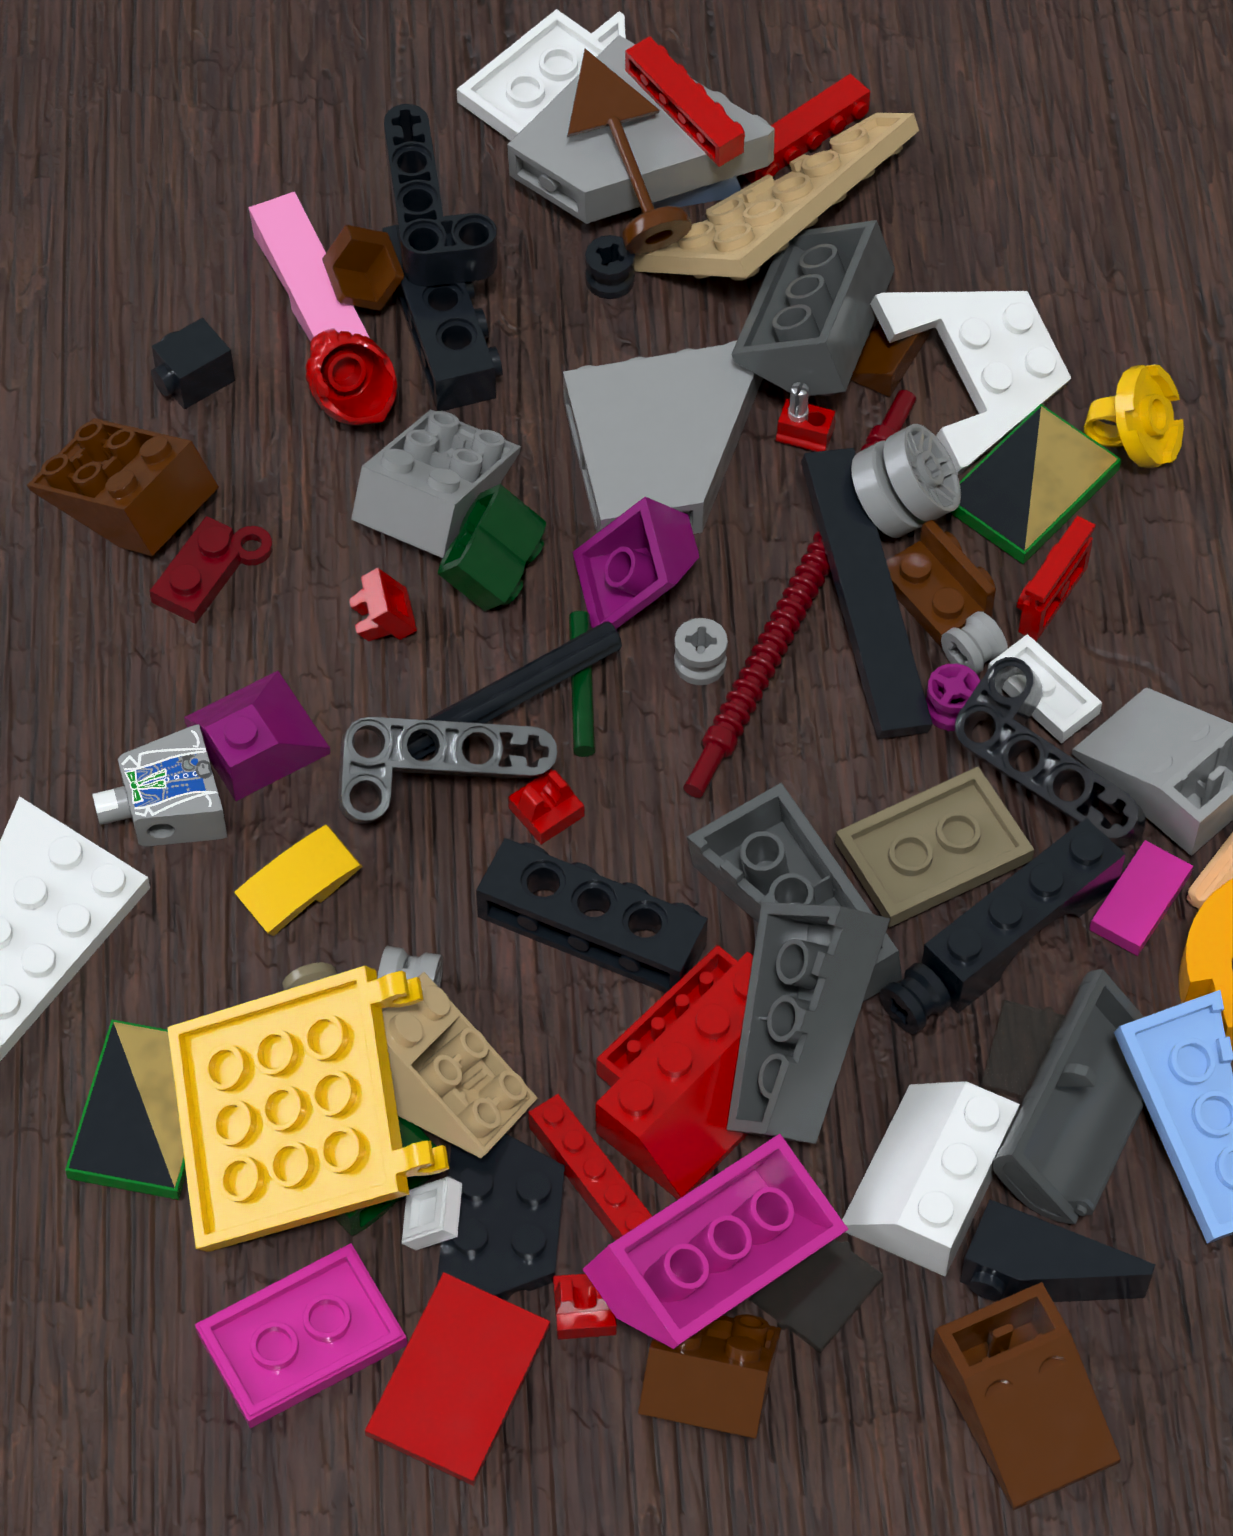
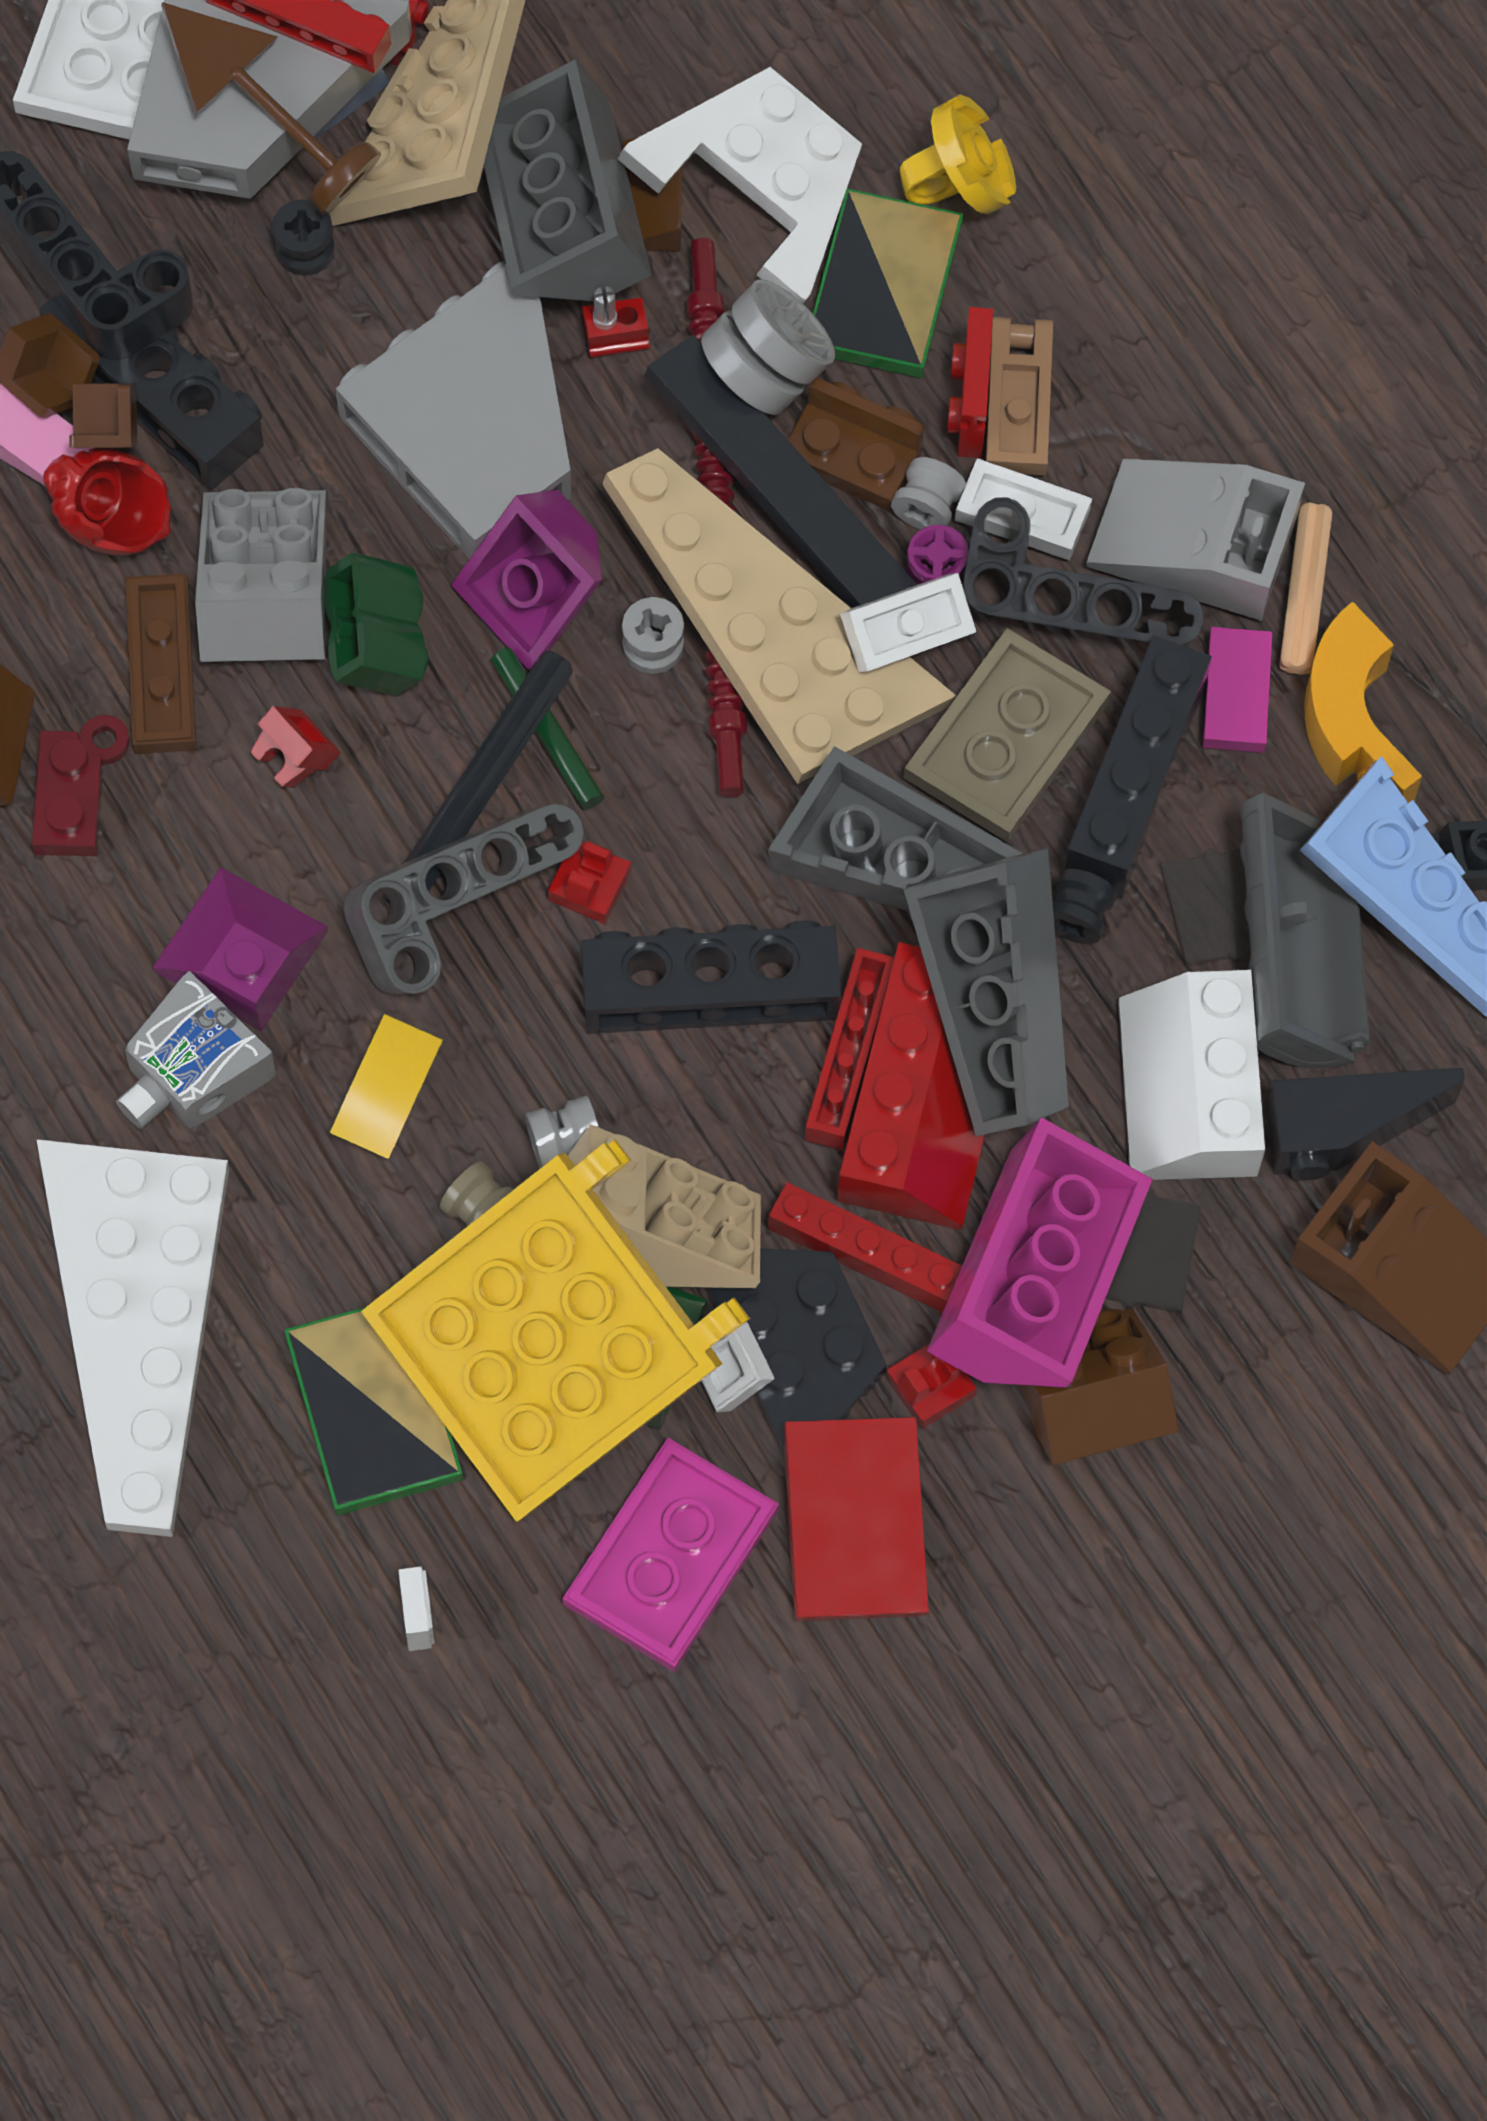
camera: 30 degrees left, 10 degrees up
(76, 1274) = (416, 1608): none -> white tile
(320, 515) = (161, 663): none -> reddish brown tile
(381, 316) = (104, 415): none -> reddish brown panel
(793, 686) = (768, 622): none -> tan wing
(899, 724) = (908, 622): none -> white plate
(1089, 606) = (1019, 396): none -> medium nougat plate

